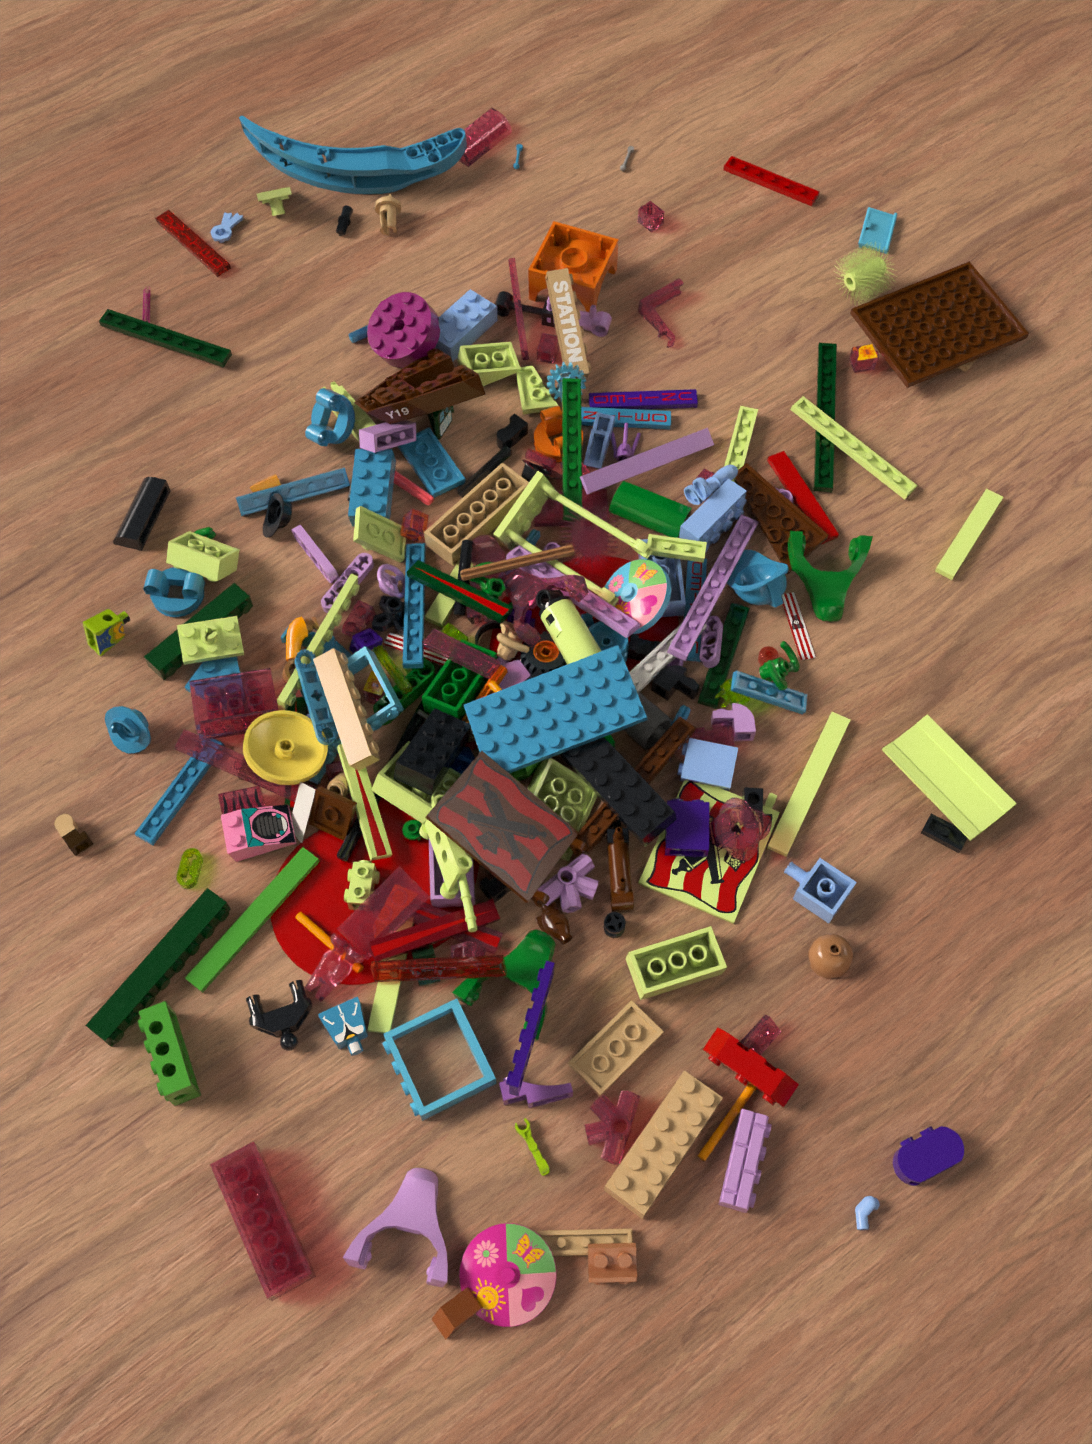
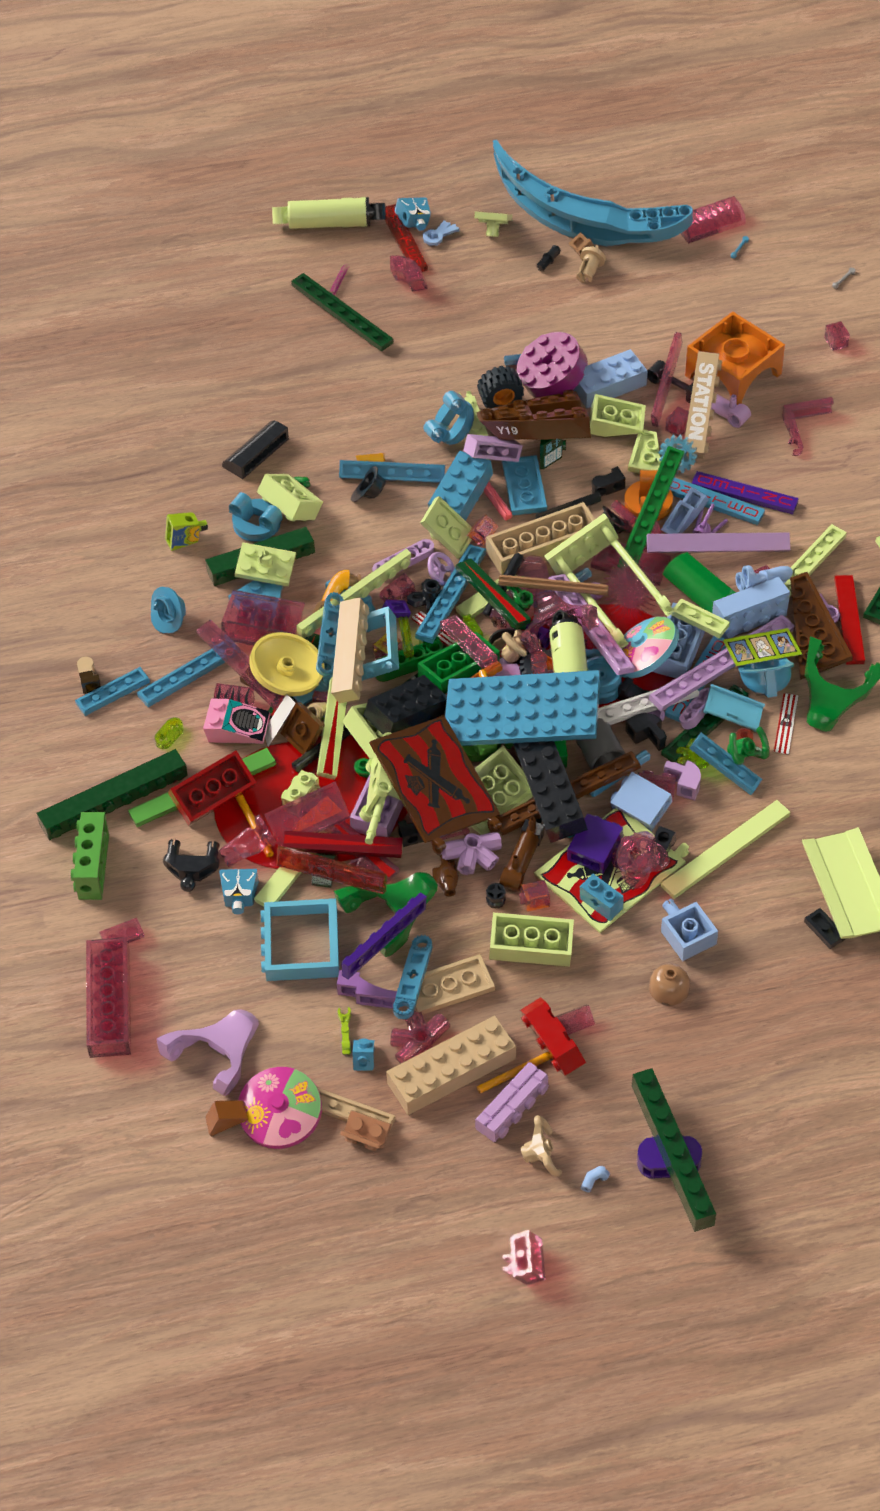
camera: 25 degrees right, 10 degrees down
(106, 238) = (329, 213): none -> yellowish green piece
(106, 842) = (112, 691): none -> dark azure tile
(191, 212) = (413, 212): none -> dark azure torso
(214, 275) = (408, 271): none -> clear pink brick
(242, 1131) = (129, 929): none -> clear pink plate
(267, 920) = (212, 787): none -> red brick
(315, 554) = (386, 526): lavender beam -> none
(363, 369) = (500, 387): none -> black wheel
(369, 197) = (579, 243): none -> medium nougat bracket
(546, 657) = (539, 663): none -> clear pink leg
(566, 1168) = (363, 1054): none -> dark azure bracket
(580, 1073) = (410, 988): none -> dark azure piece
(654, 909) = (535, 895): none -> clear pink brick
(722, 887) = (601, 897): none -> dark azure brick
(742, 555) = (762, 647): none -> sticker
(753, 627) = (739, 708): none -> medium azure door
(800, 1204) = (539, 1147): none -> tan piece
(850, 1346) = (526, 1258): none -> clear pink brick
(941, 1156) = (673, 1150): none -> dark green brick

